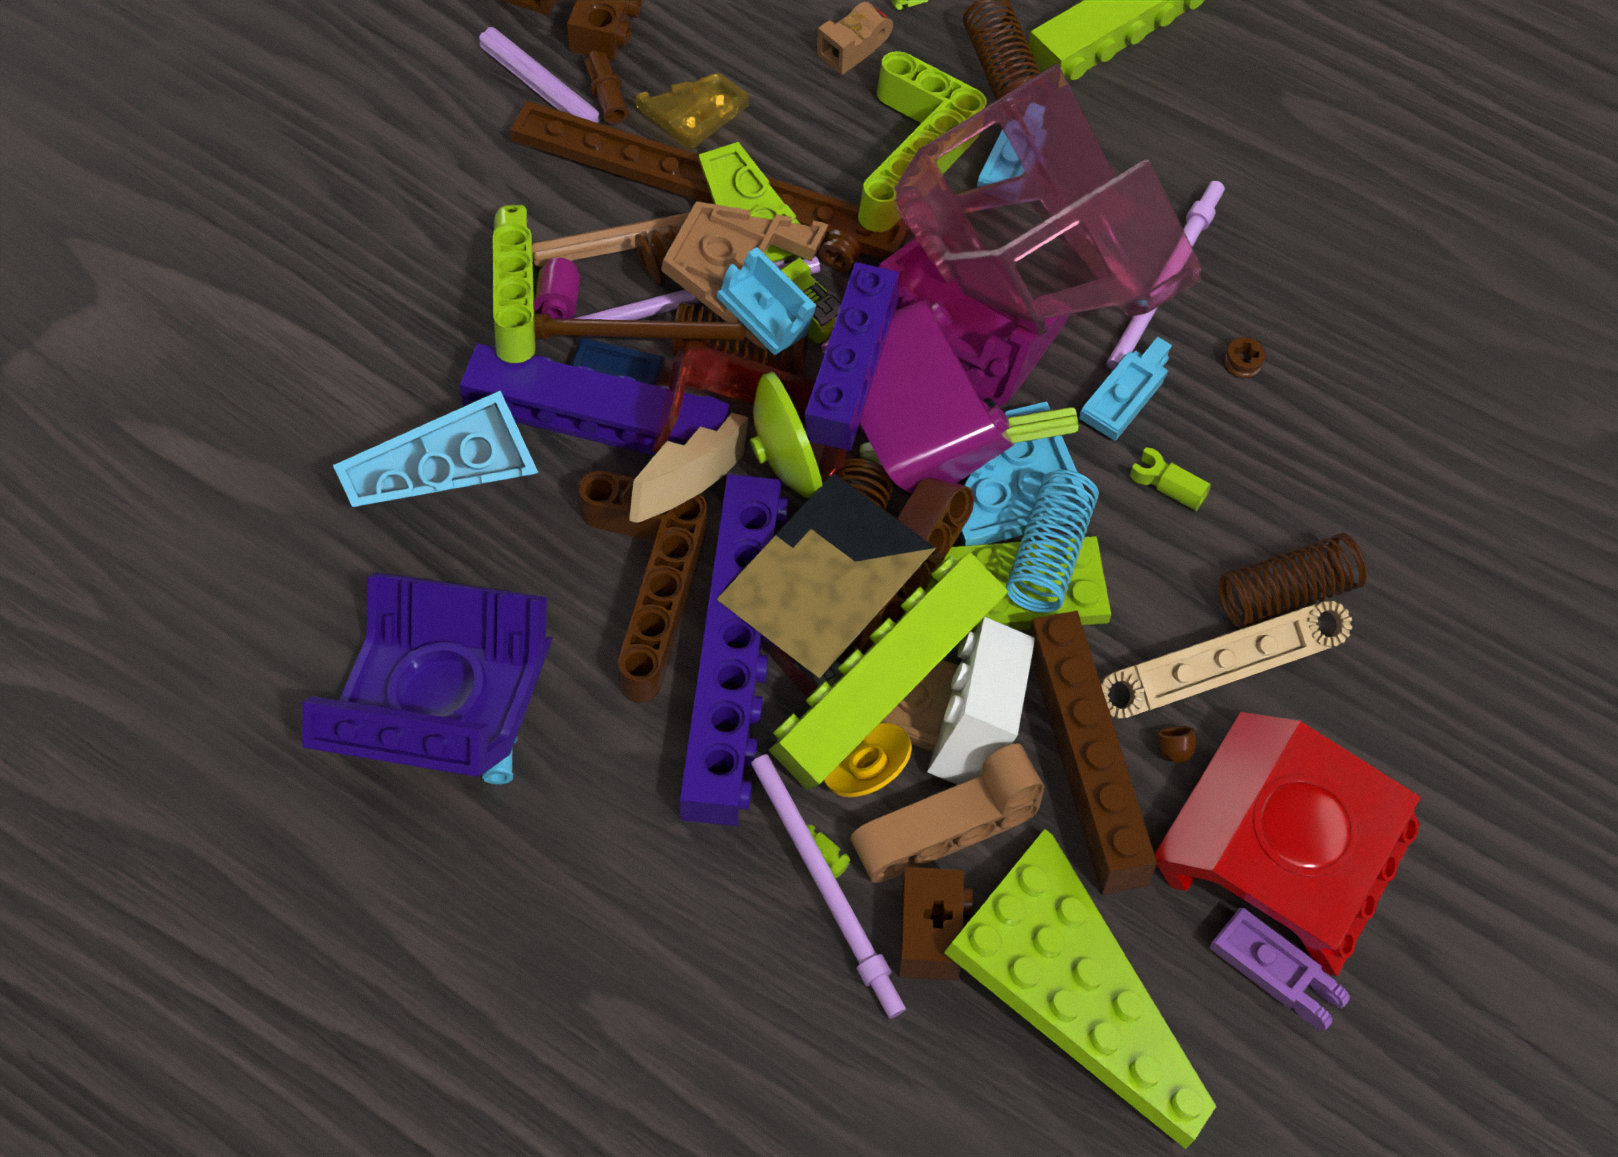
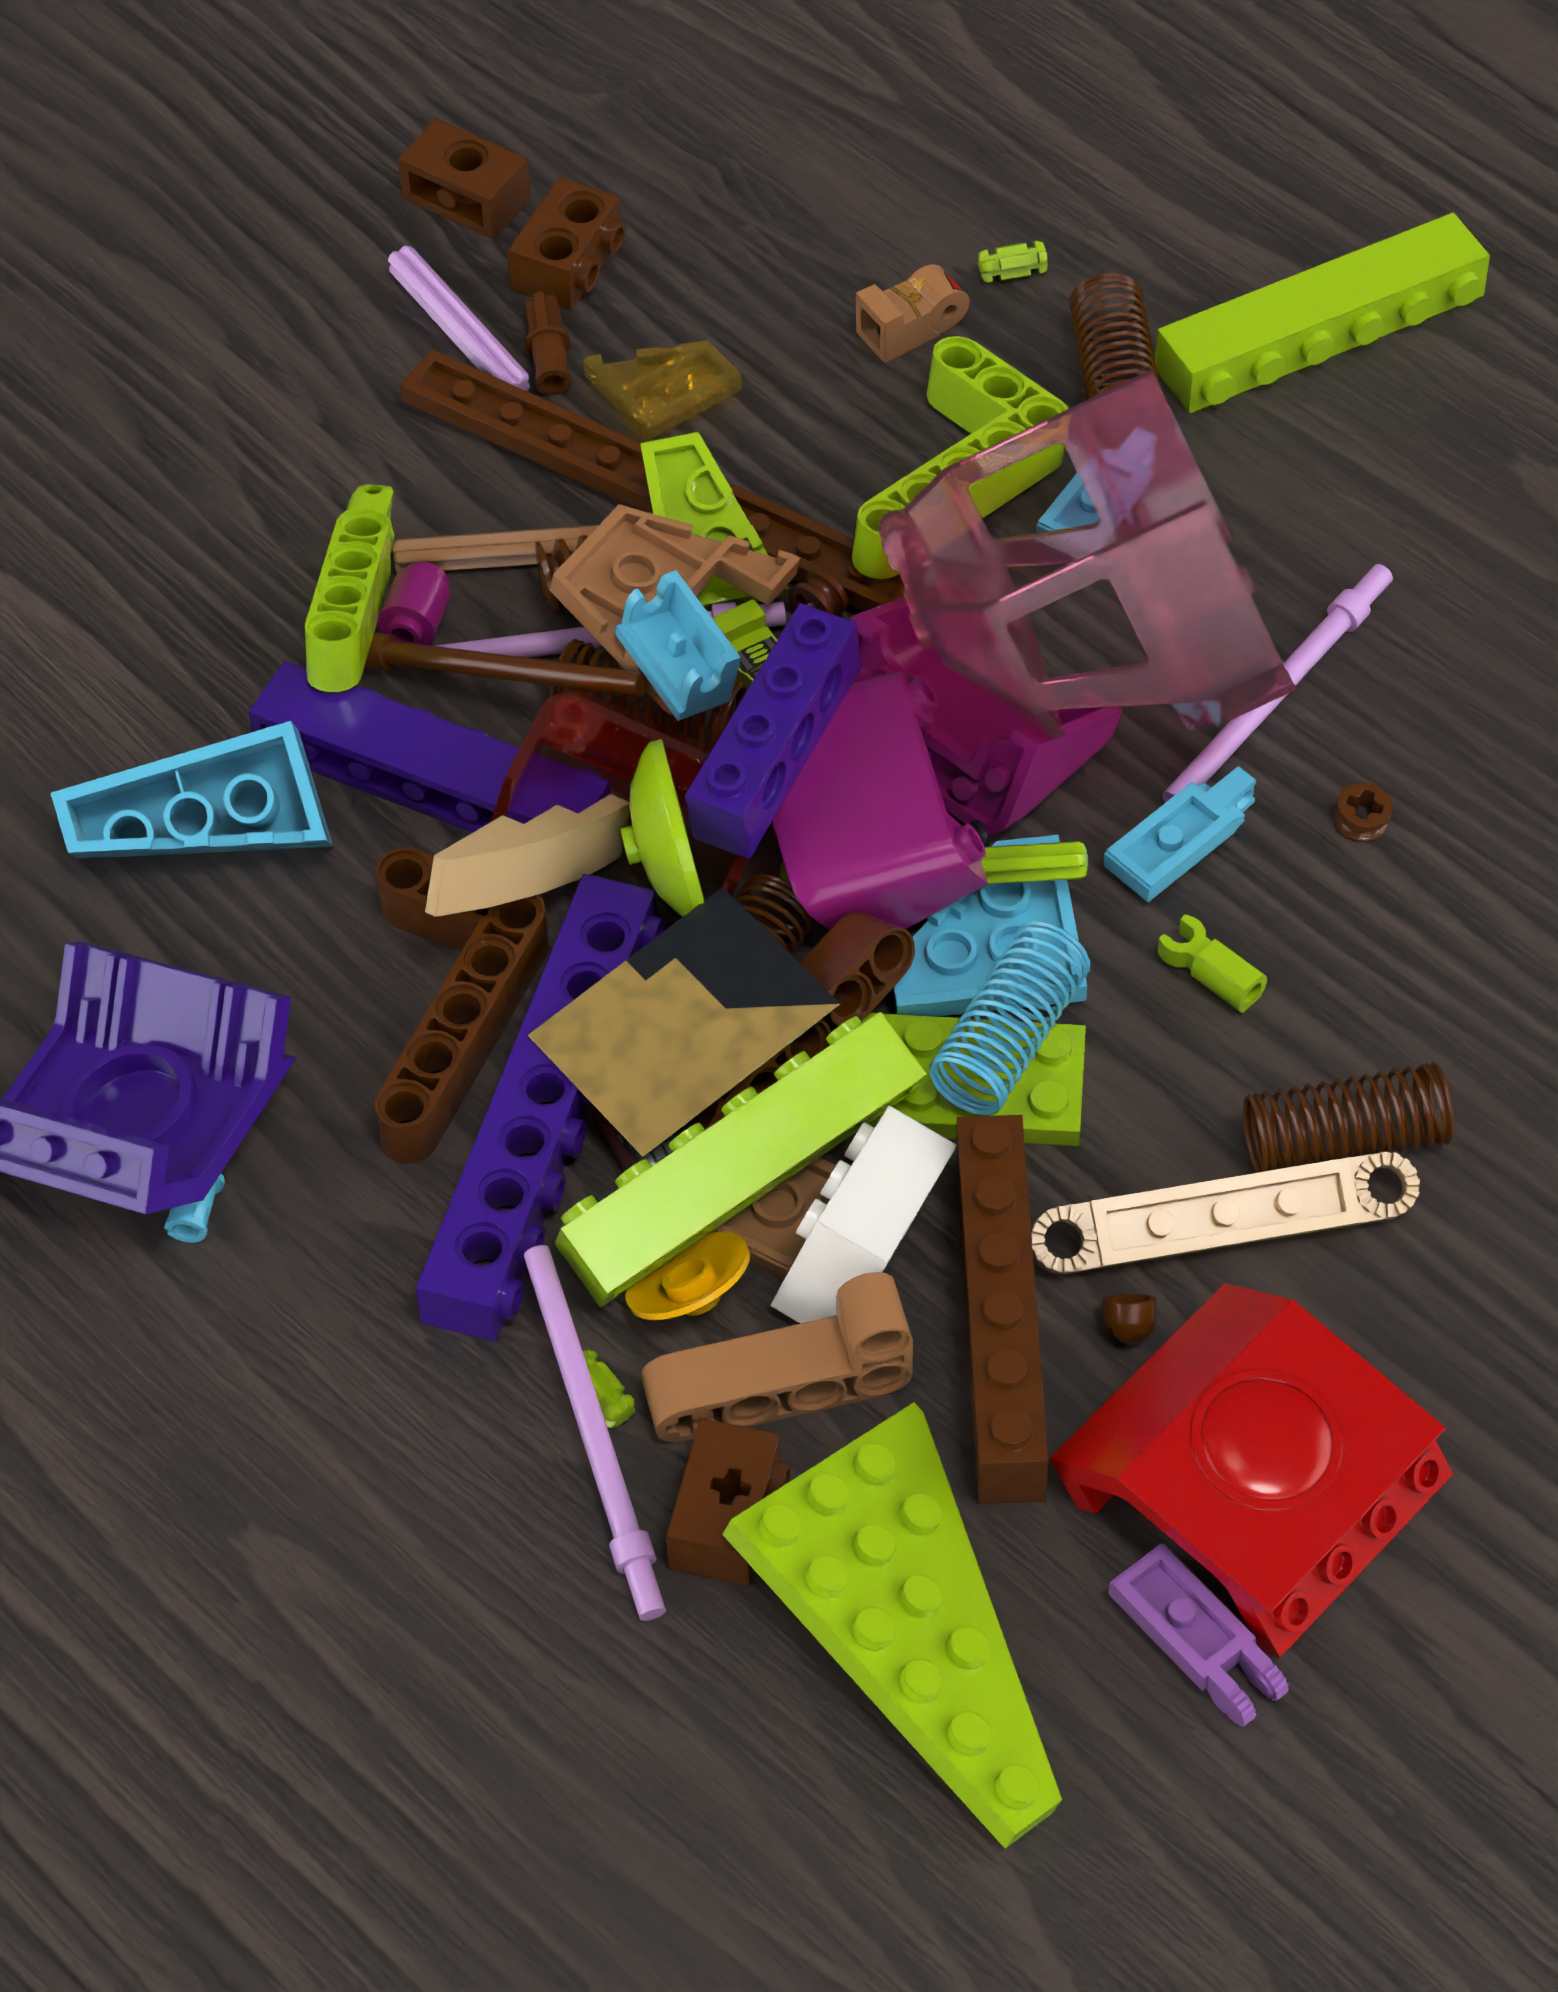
camera: 15 degrees right, 5 degrees down
(619, 361) = (476, 709): dark blue tile -> none

